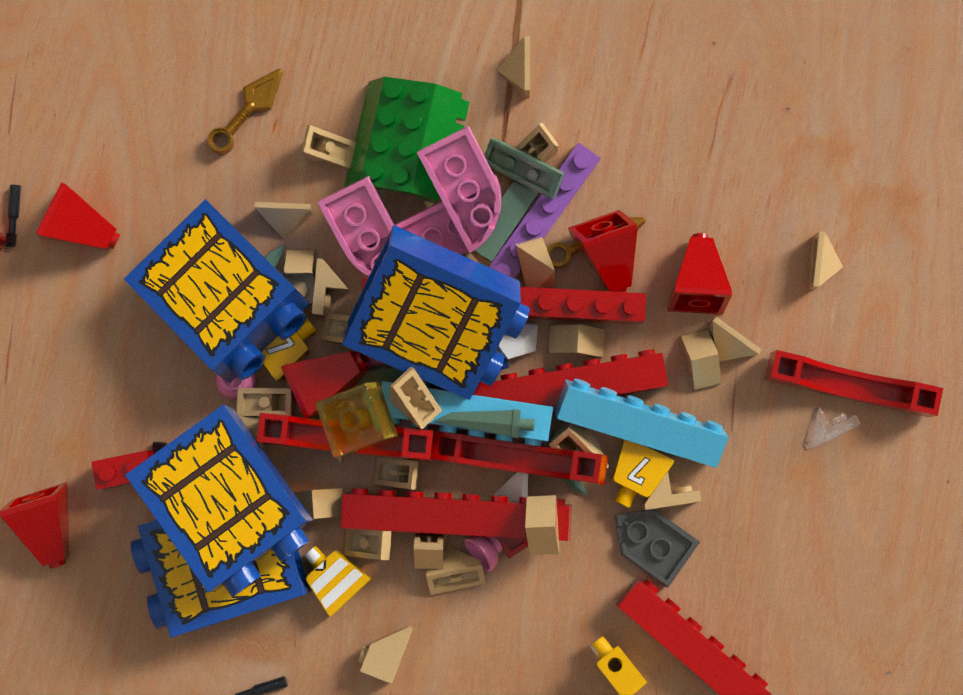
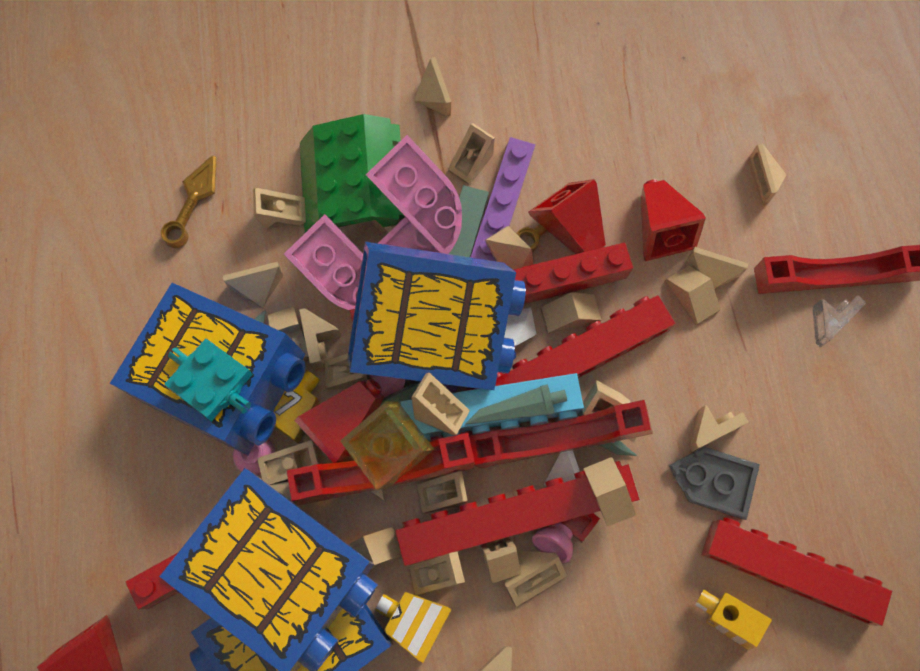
camera: 20 degrees left, 10 degrees down
(76, 222) = (48, 349): red slope -> none
(213, 309) = (209, 380): none -> teal plate
(523, 168) = (473, 171): sand green tile -> none
(638, 471) = (675, 414): yellow torso -> none
(641, 423) = (663, 366): medium azure brick -> none

